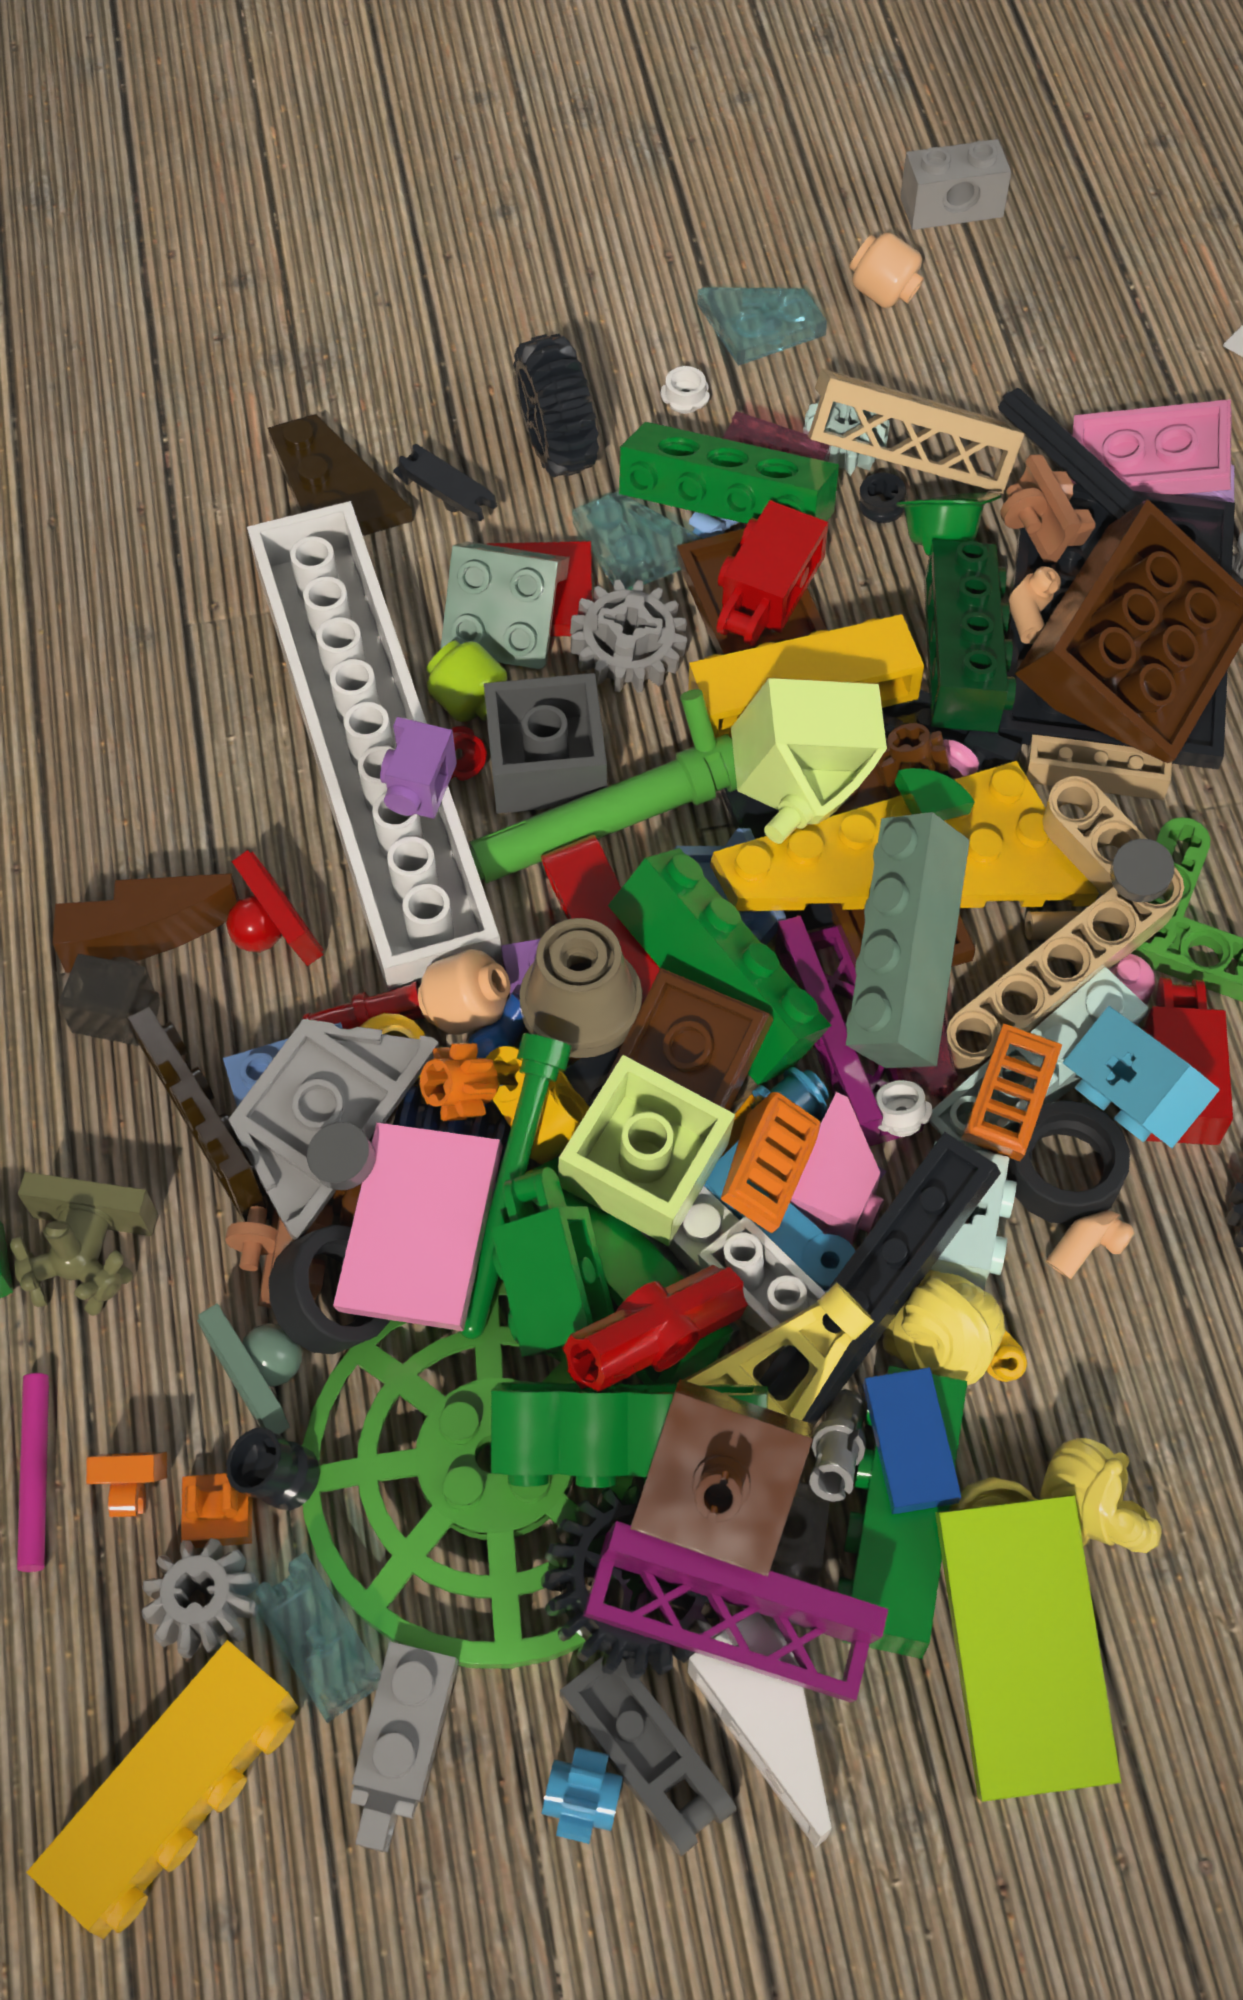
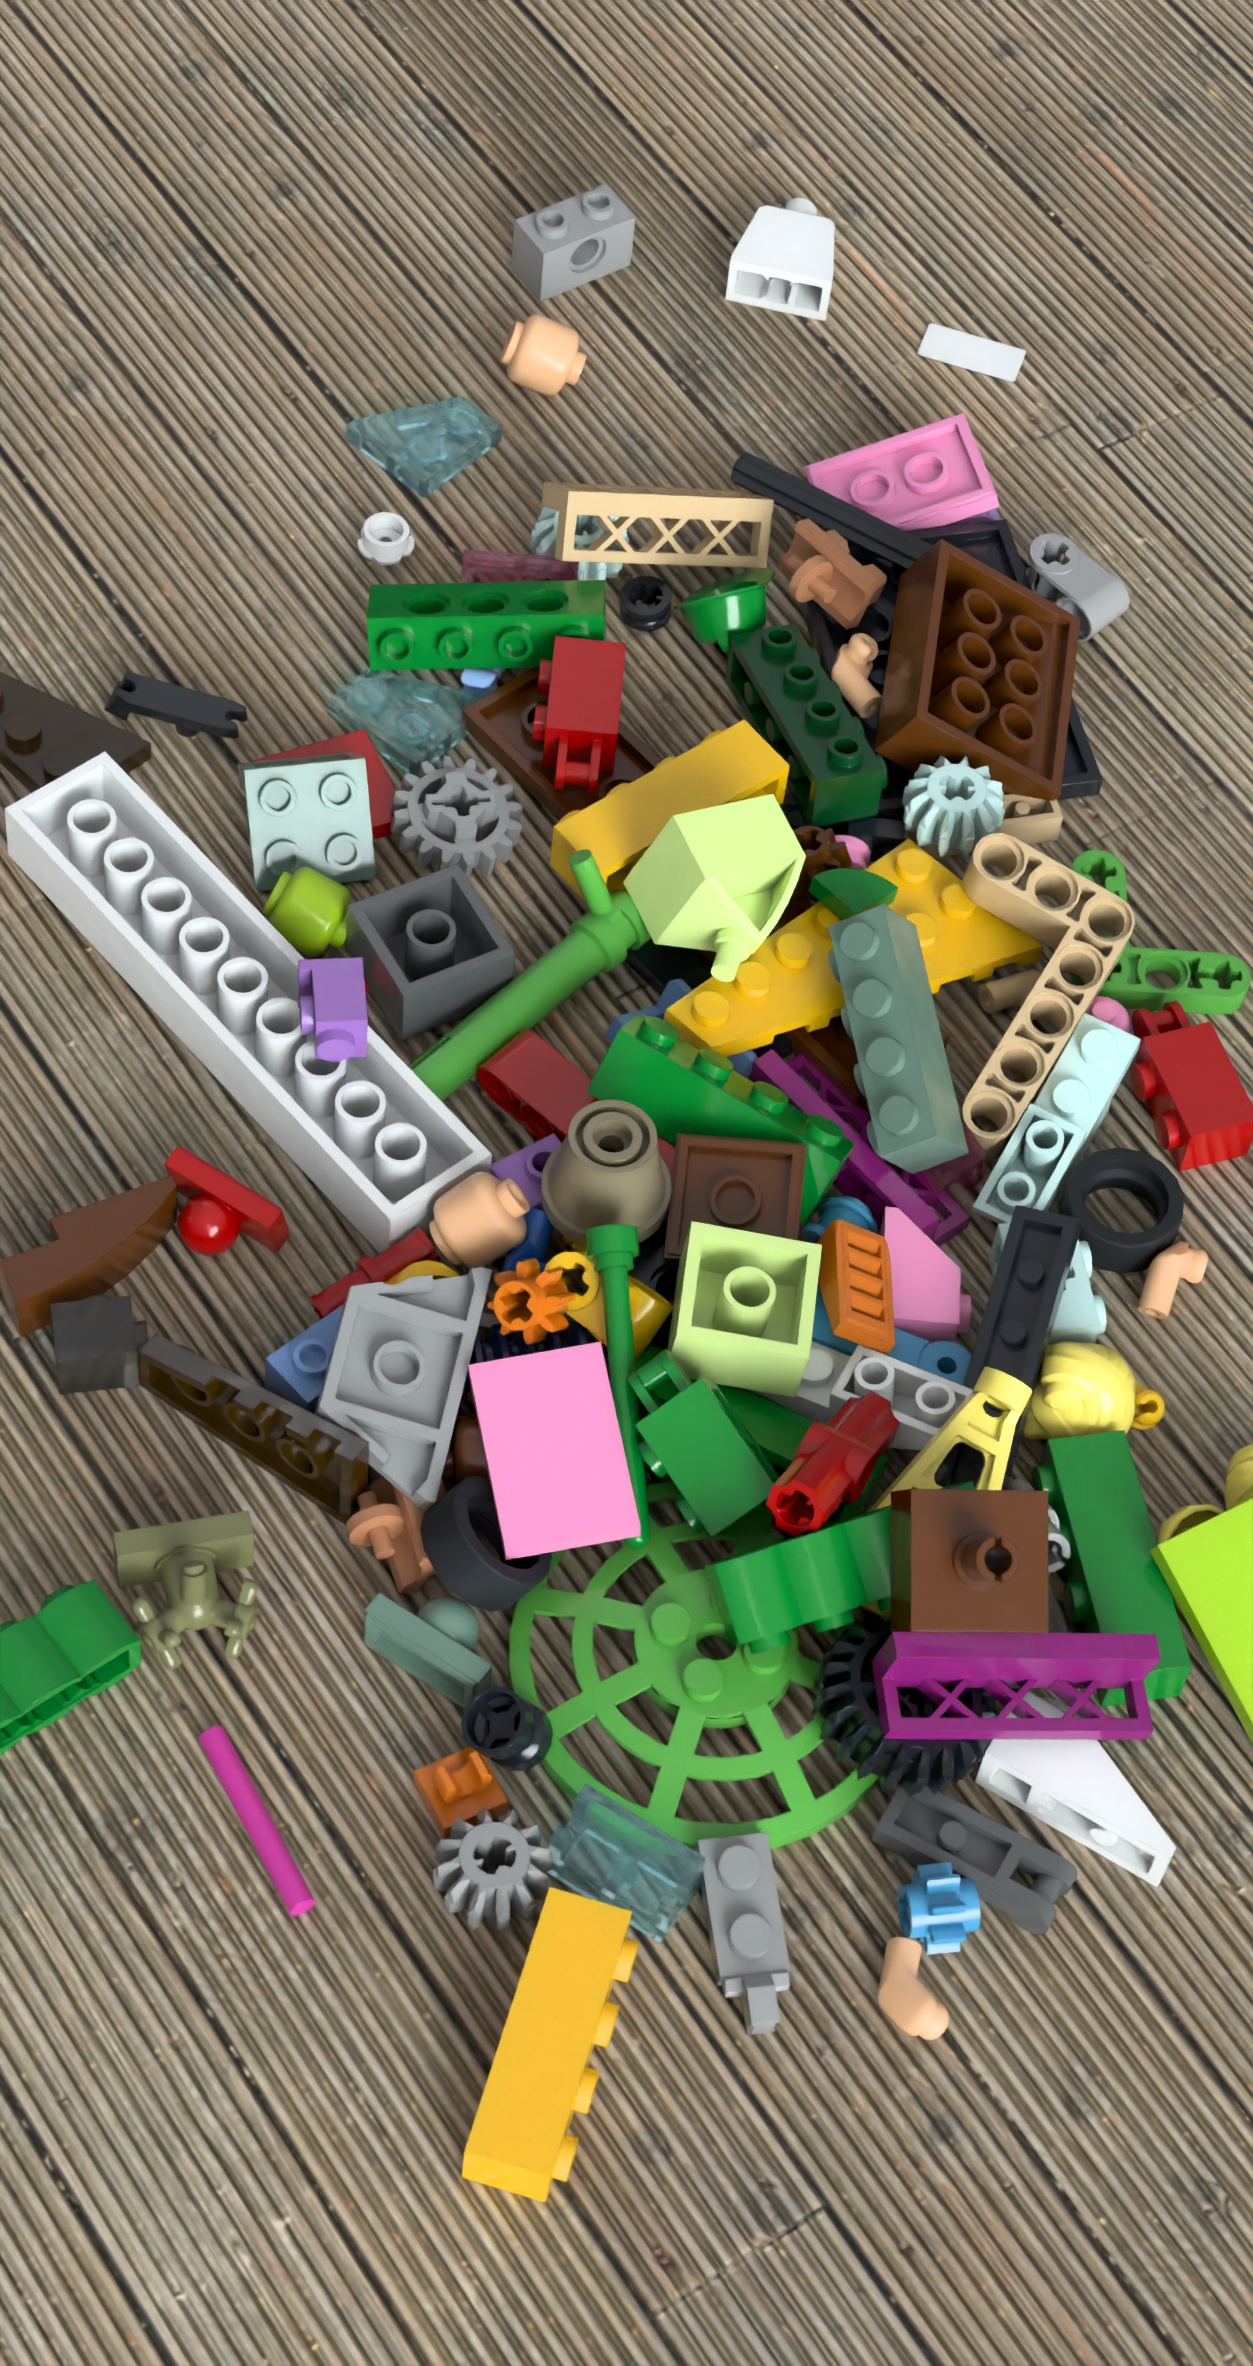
camera: 30 degrees left, 5 degrees down
(126, 1478) = (361, 1786): orange tile -> none
(341, 1156) = (451, 1405): dark grey tile -> none
(515, 1867) = (904, 1996): none -> light nougat arm
(556, 404) = (268, 590): black gear -> none
(903, 1108) = (953, 1202): white plate -> none
(911, 1441) = (1100, 1495): blue tile -> none
(998, 1138) = (1070, 1201): orange slope -> none
(1065, 740) = (952, 805): none -> light aqua gear
(1133, 239) = (785, 261): none -> white torso
(1141, 1077) = (1194, 1105): medium azure brick -> none
(1142, 870) = (1091, 907): dark grey tile -> none

